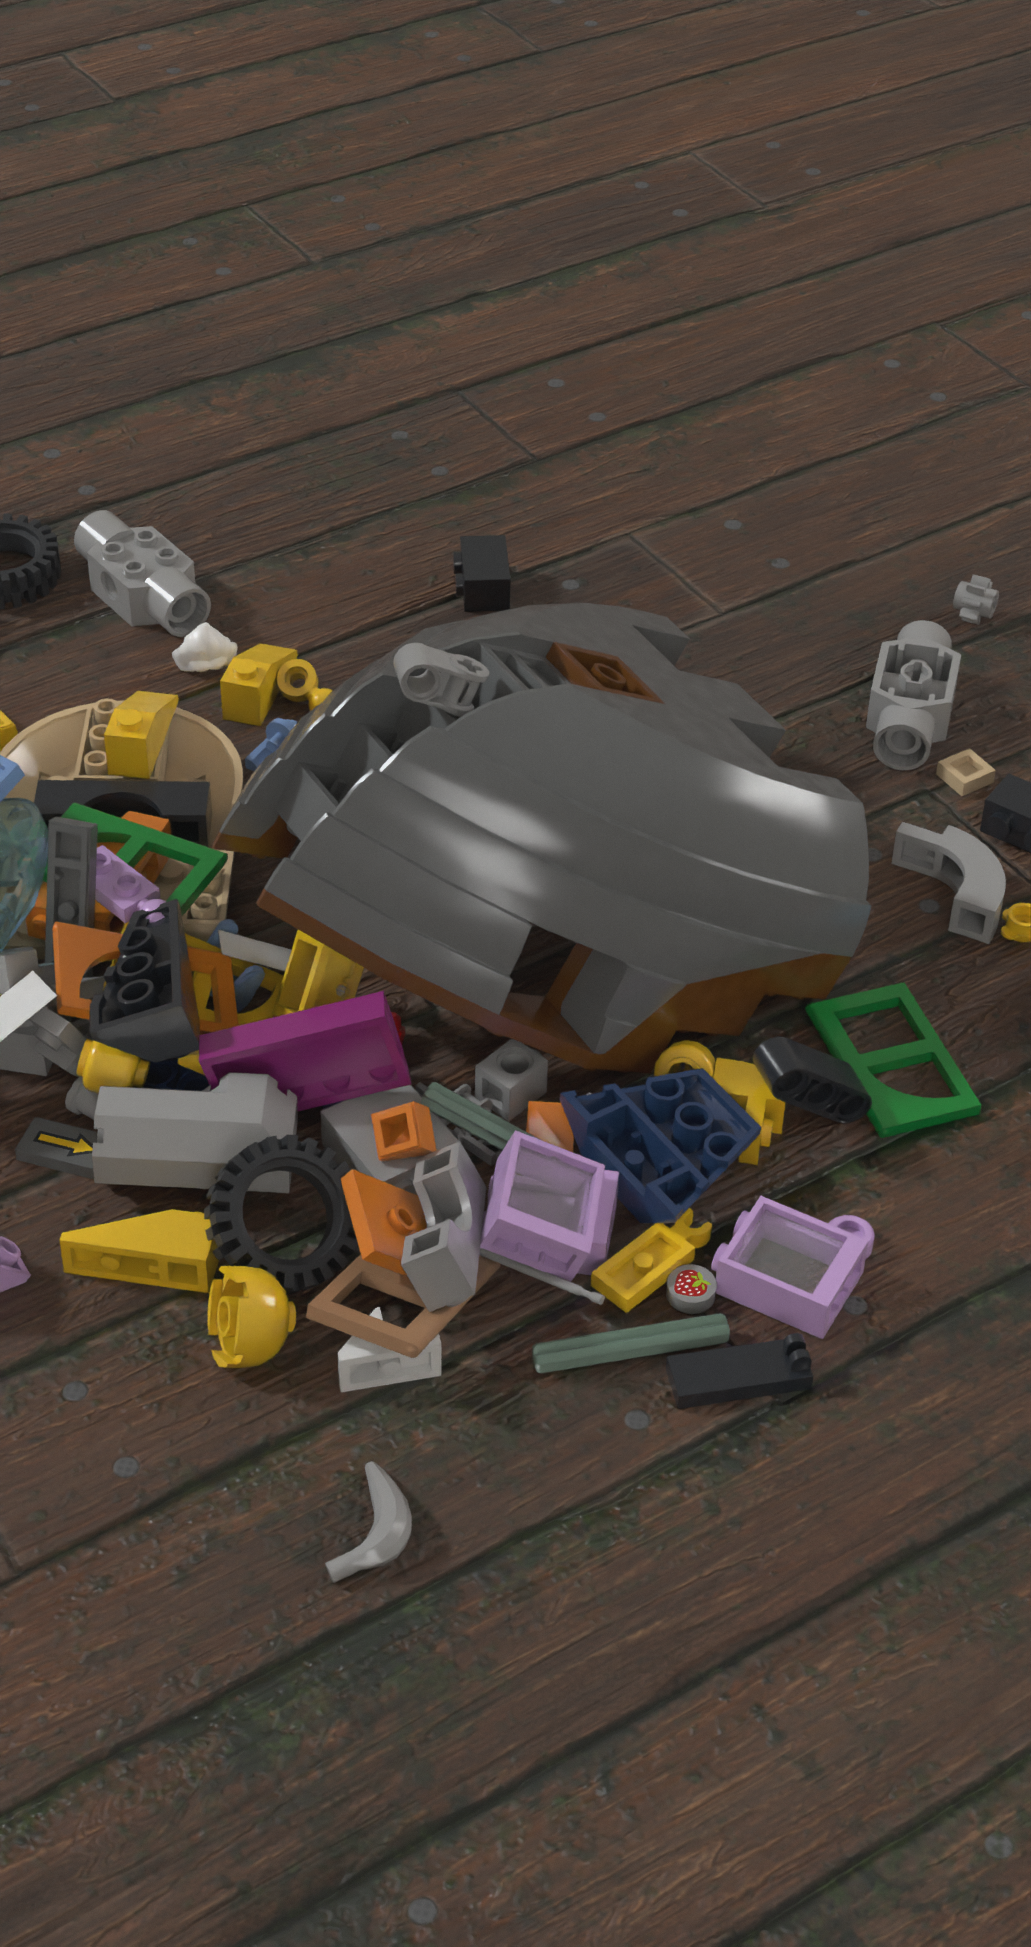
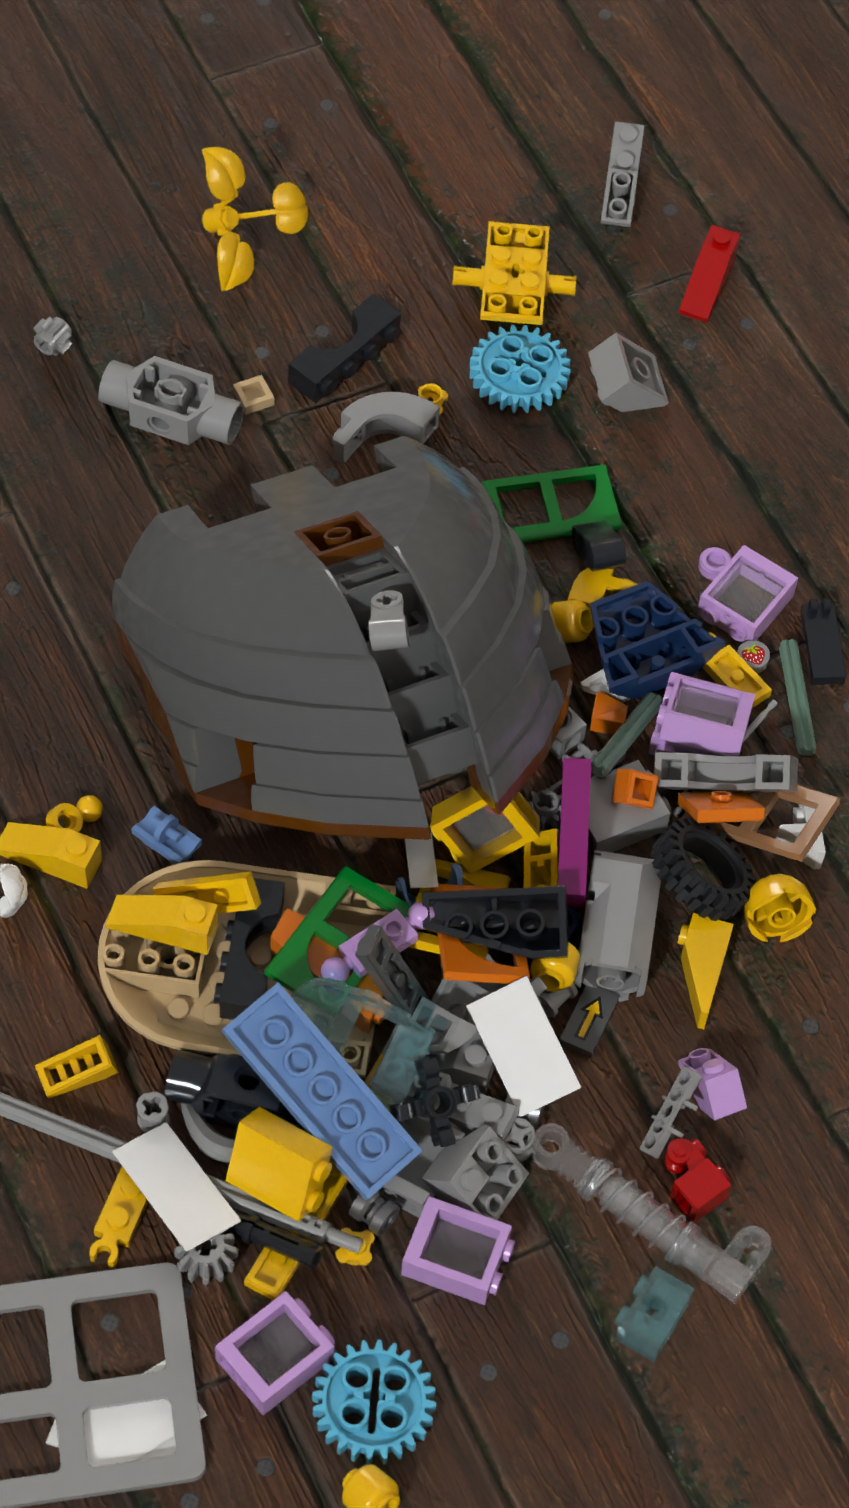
camera: 85 degrees left, 15 degrees up
(178, 755) = (229, 891): none -> yellow plate

